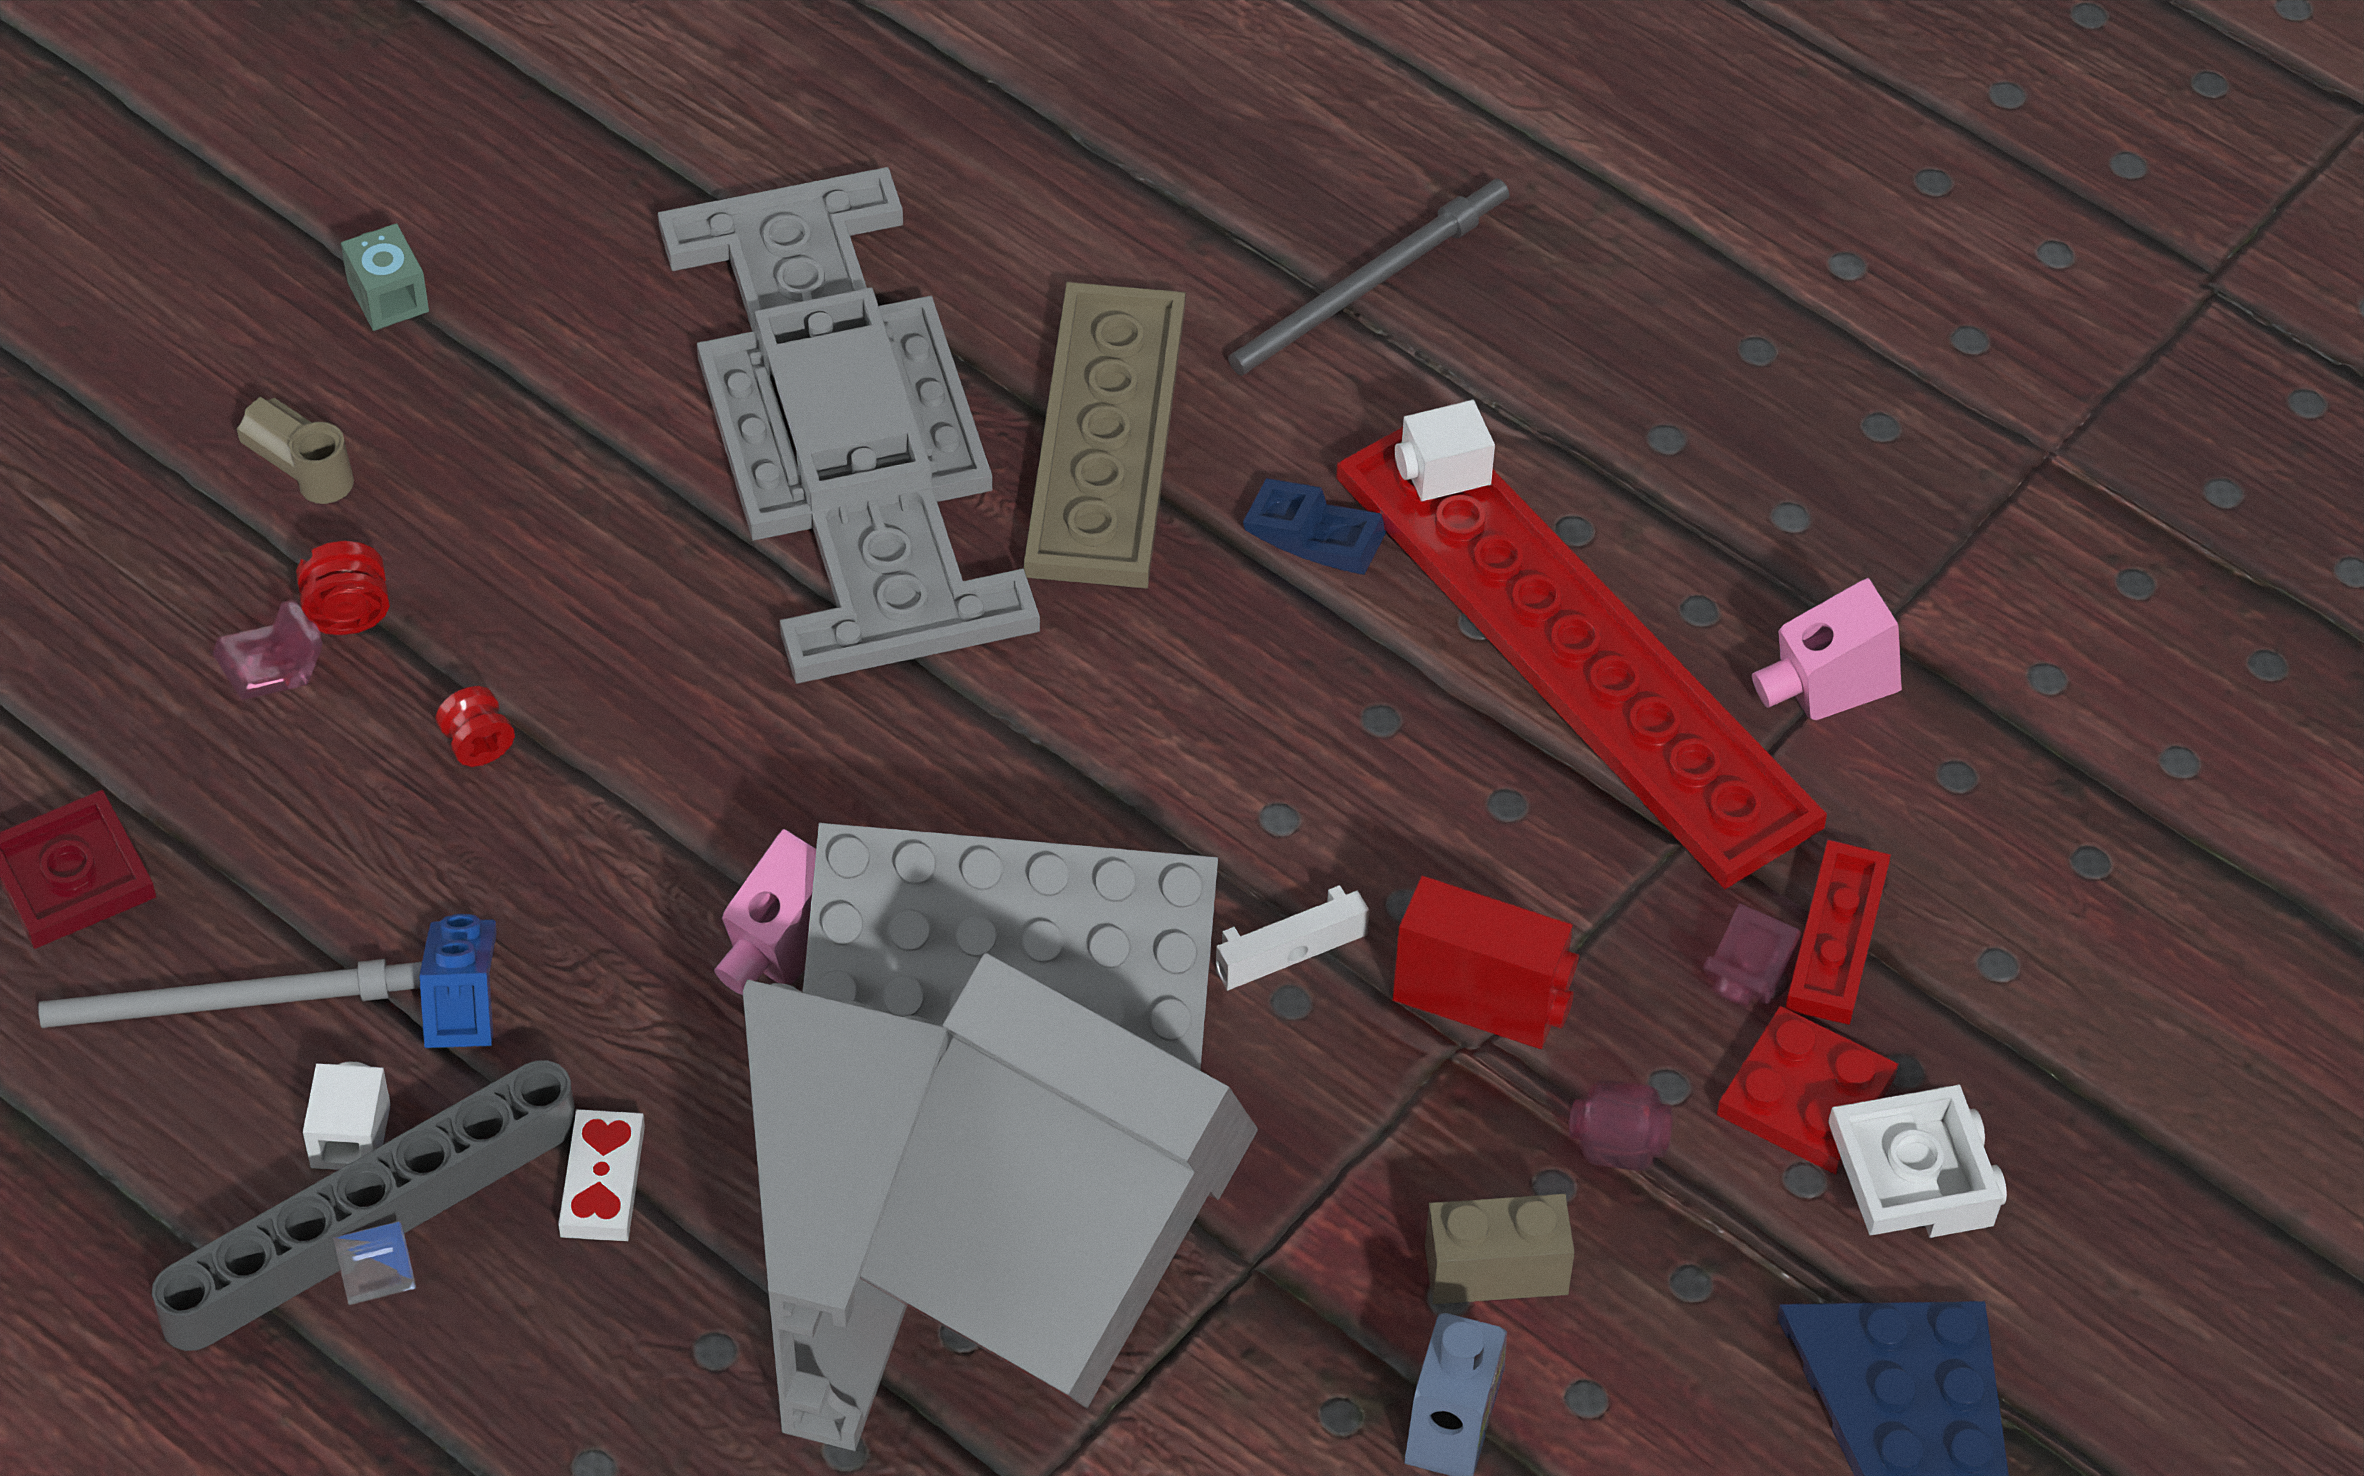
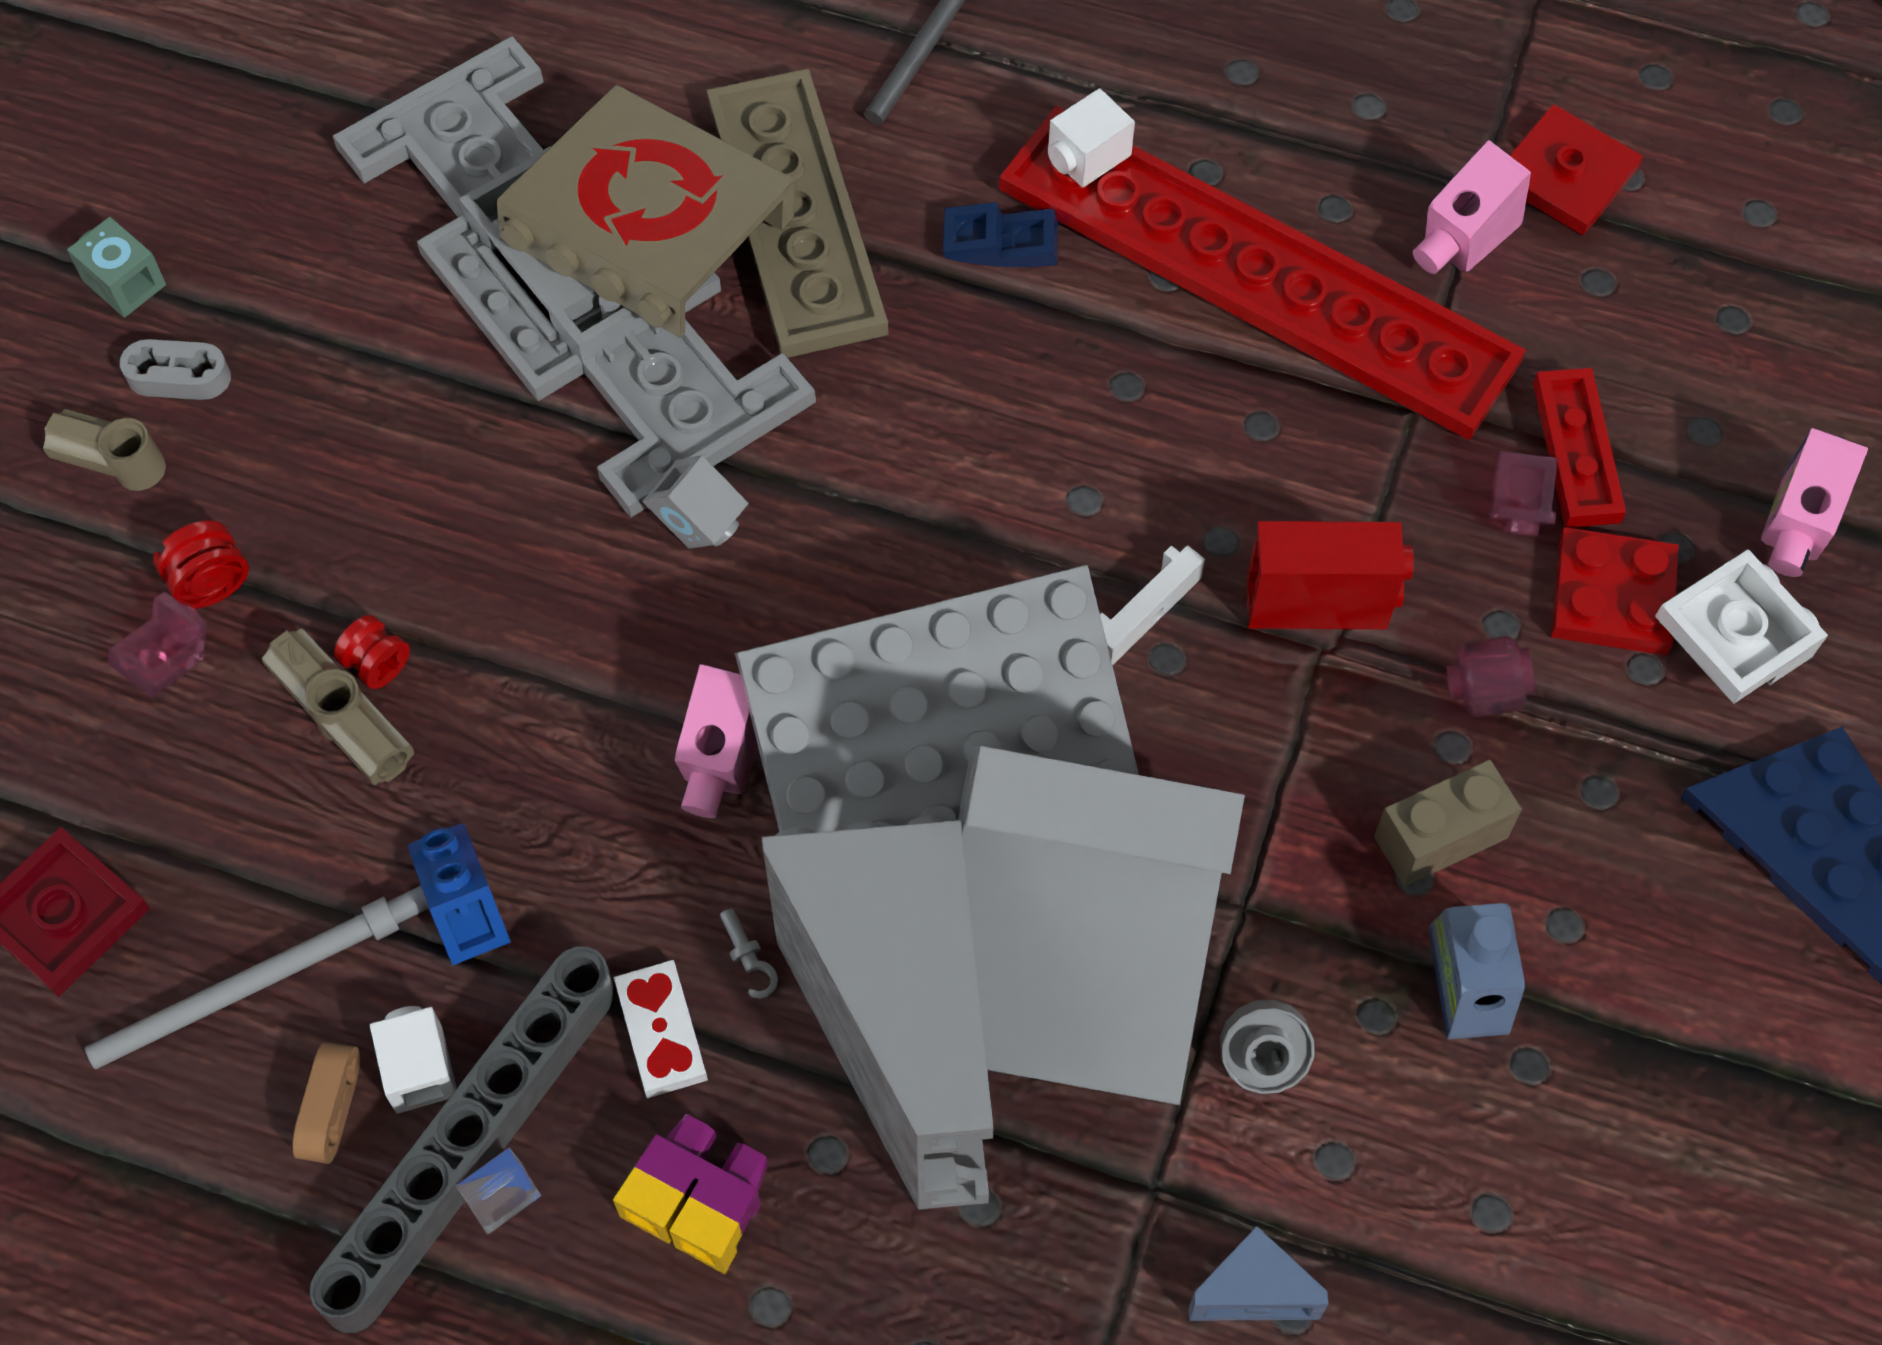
camera: 20 degrees left, 10 degrees up
(246, 1128) = (326, 1102): none -> medium nougat beam
(403, 392) = (175, 369): none -> light grey beam
(419, 766) = (358, 727): none -> dark tan piece
(555, 1335) = (691, 1200): none -> hips
(719, 1133) = (746, 951): none -> light grey hand
(864, 687) = (696, 503): none -> light grey brick
(935, 371) = (641, 206): none -> dark tan panel
(1202, 1394) = (1266, 1046): none -> light grey plate
(1980, 648) = (1574, 168): none -> red plate
(2059, 1061) = (1811, 500): none -> bright pink torso

